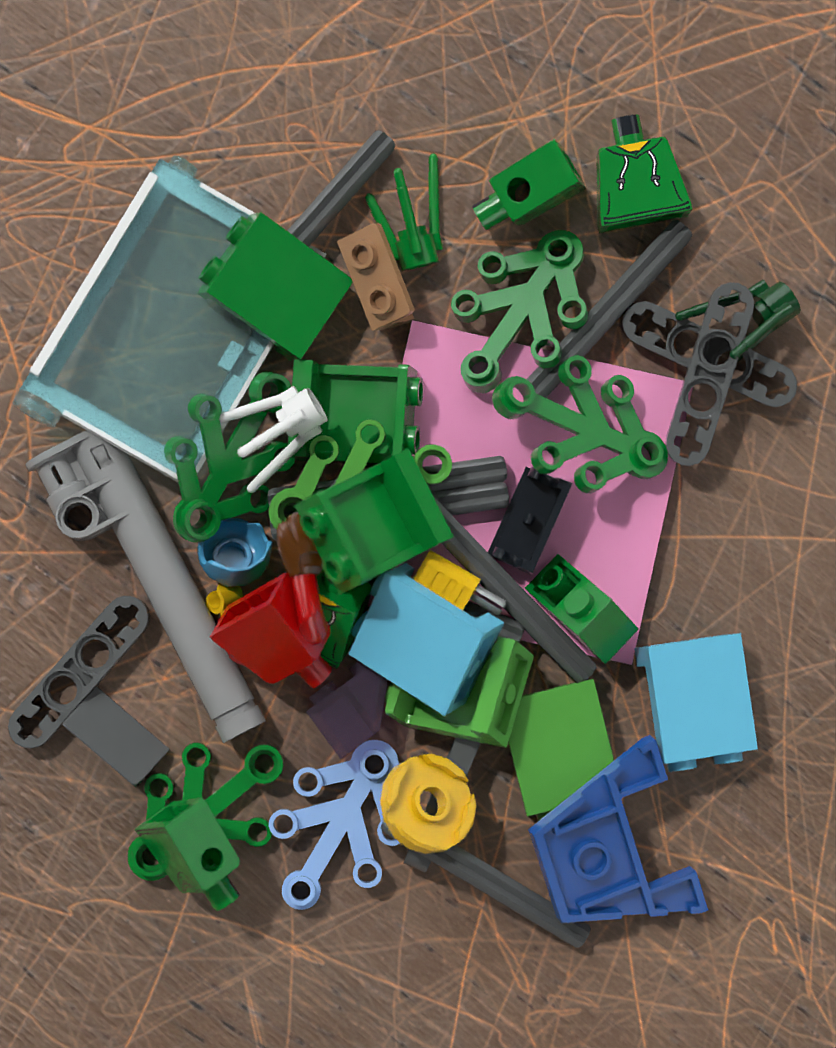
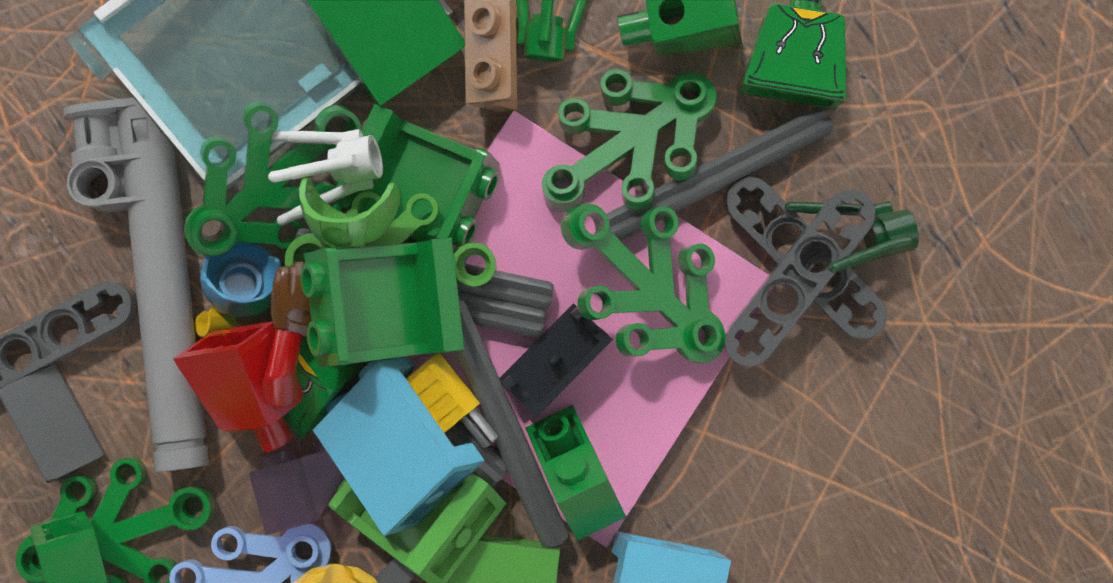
camera: 30 degrees right, 0 degrees up
(317, 475) = (342, 230): none -> bright green helmet

